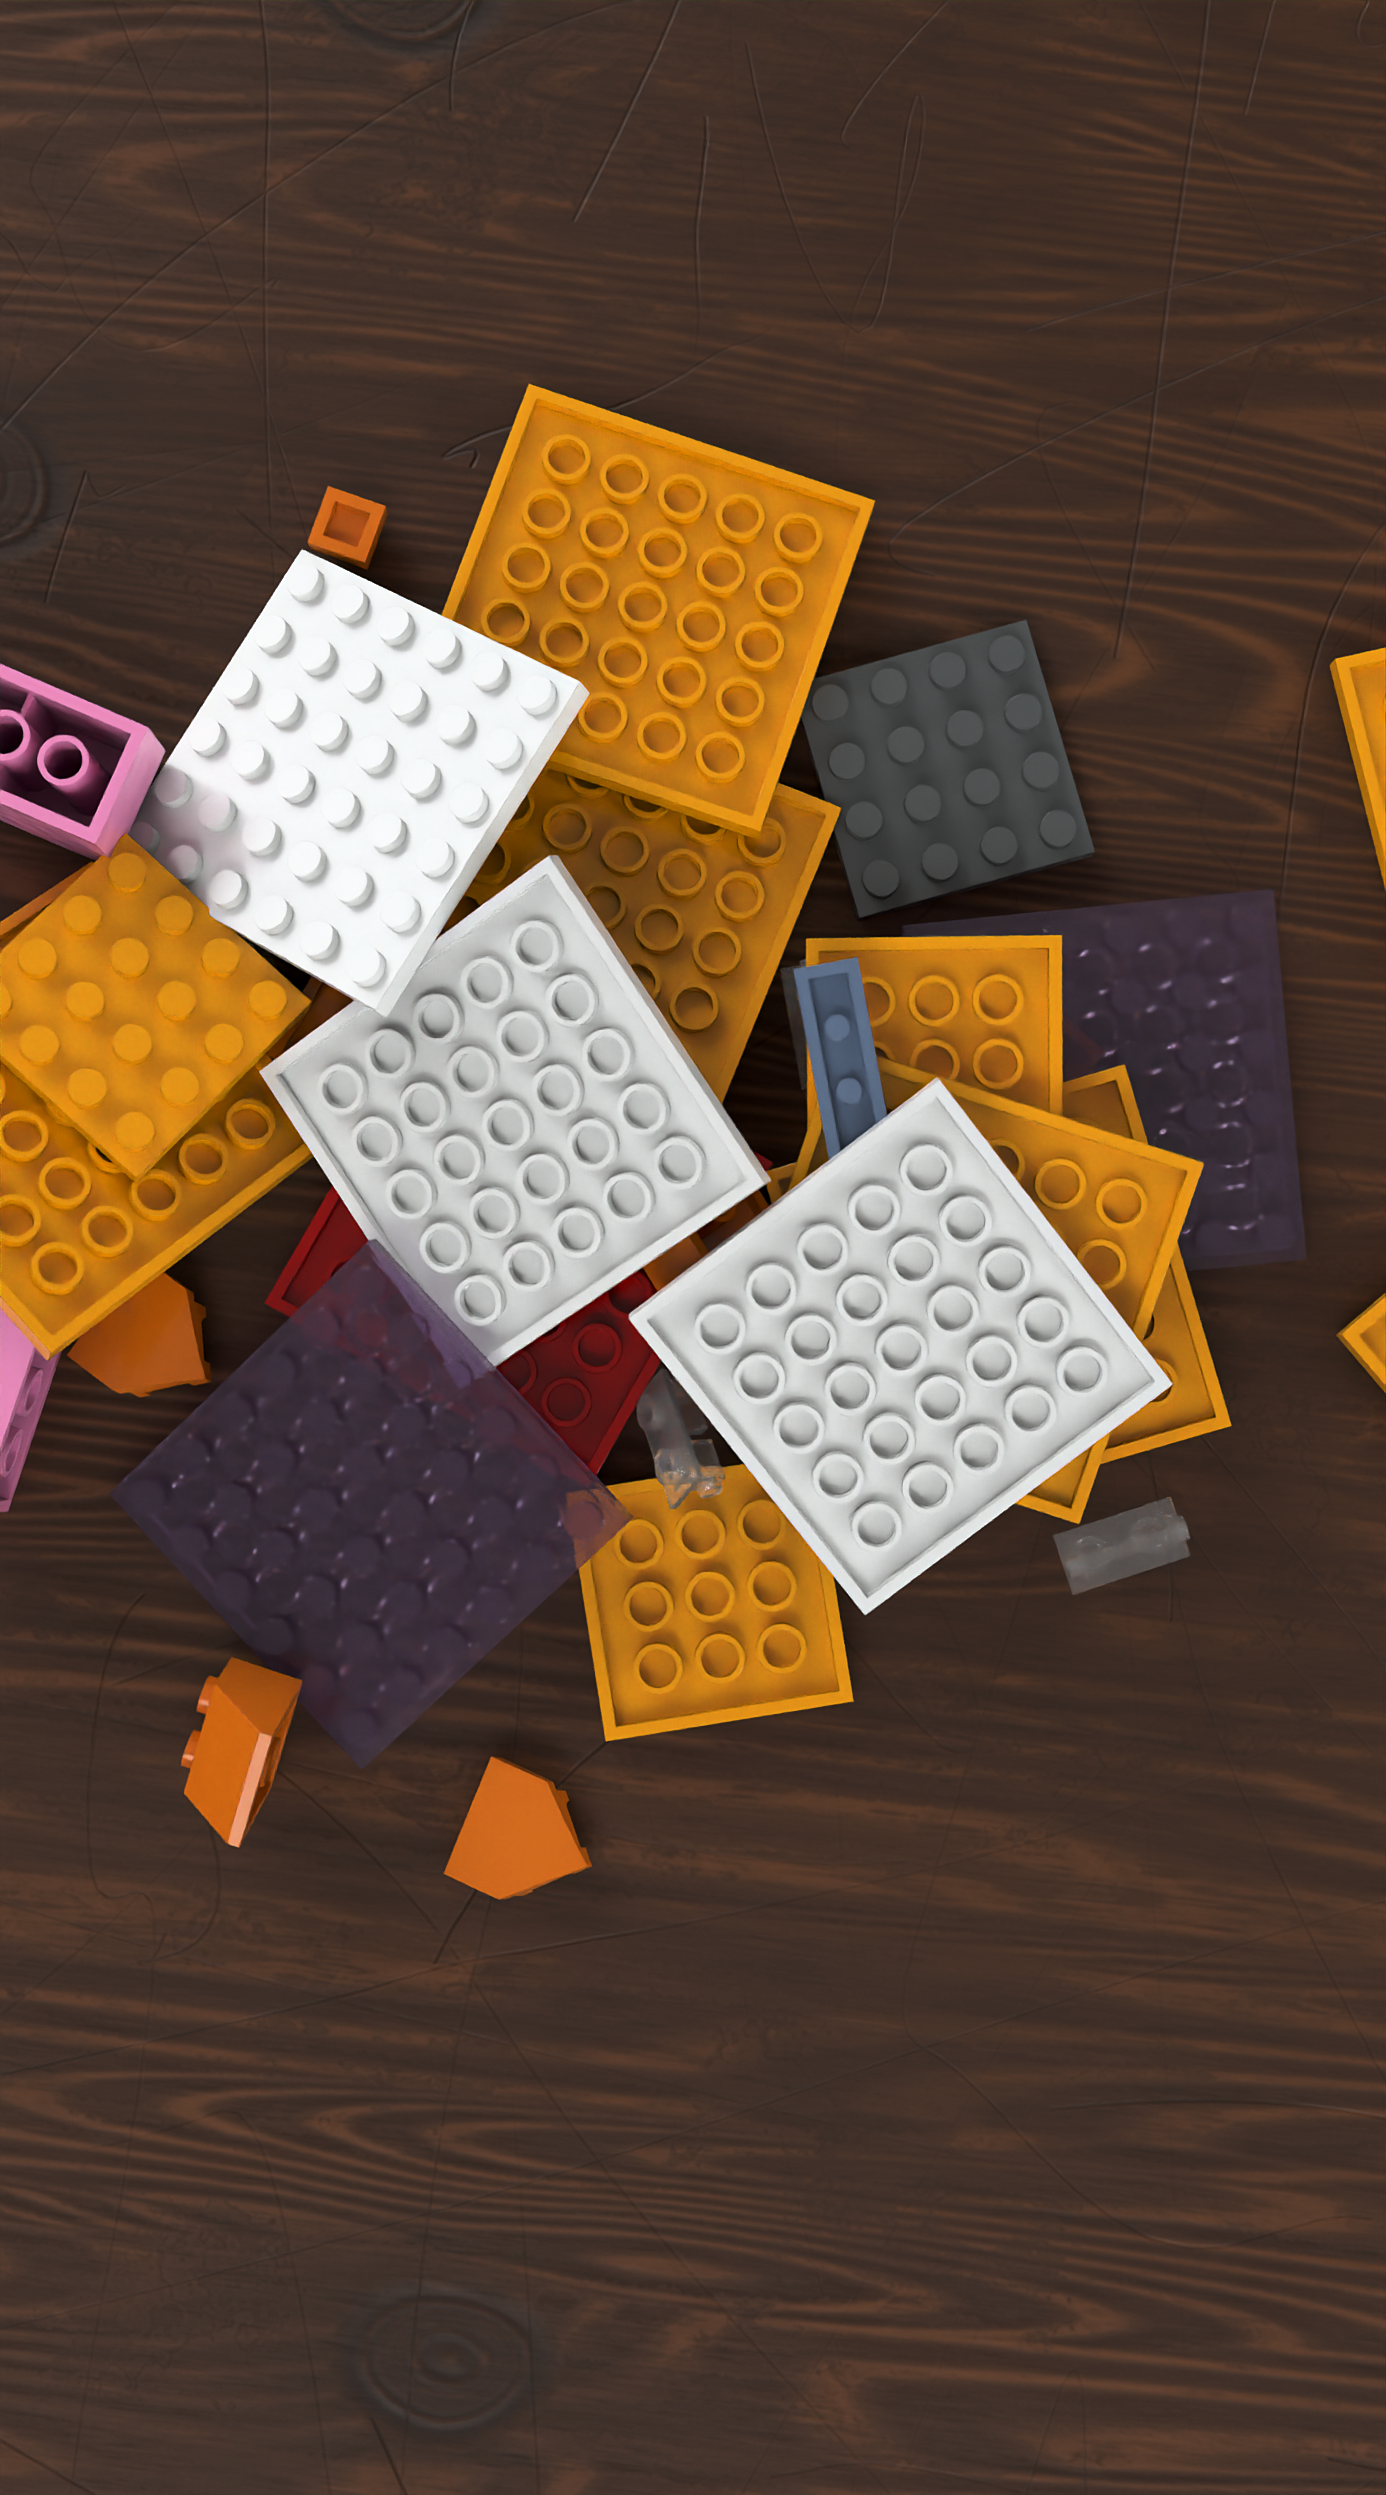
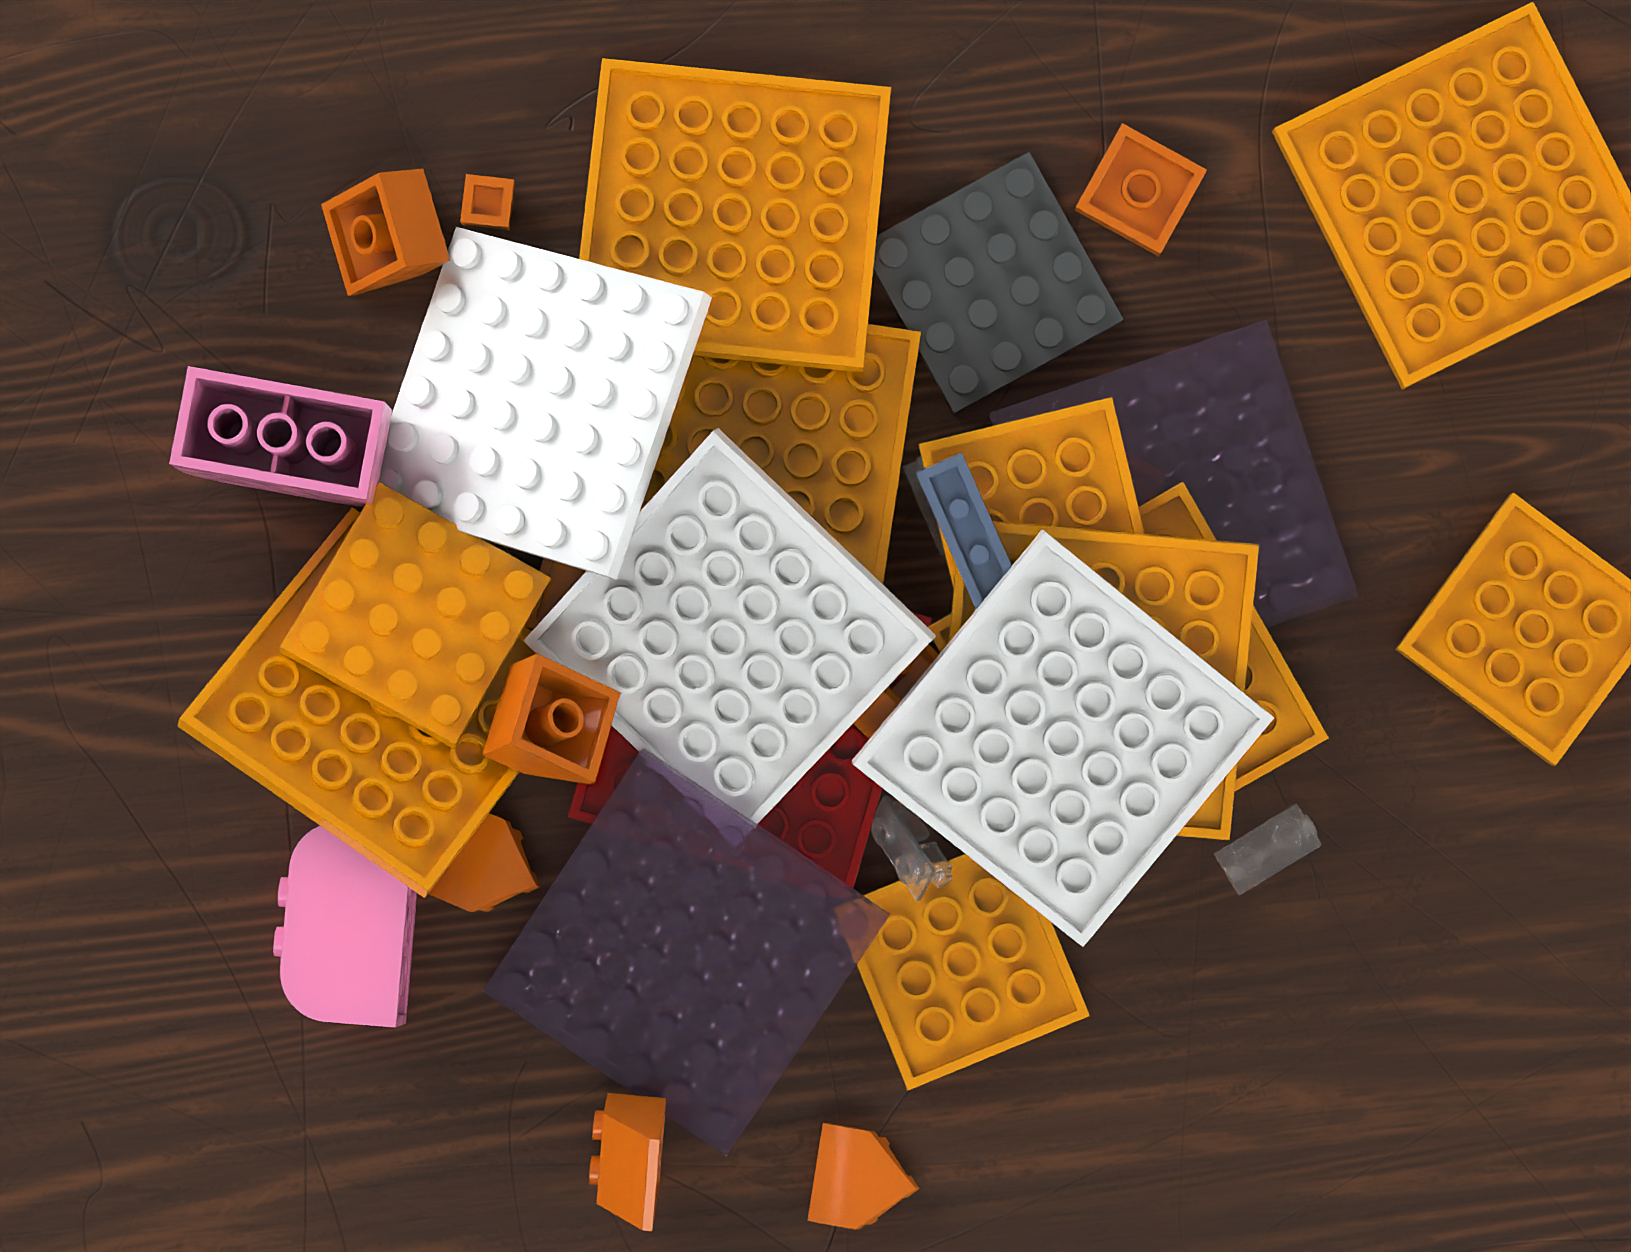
camera: 10 degrees left, 0 degrees up
(214, 532) = (385, 231): none -> orange slope
(265, 1178) = (551, 721): none -> orange slope
(1152, 697) = (1140, 190): none -> orange plate

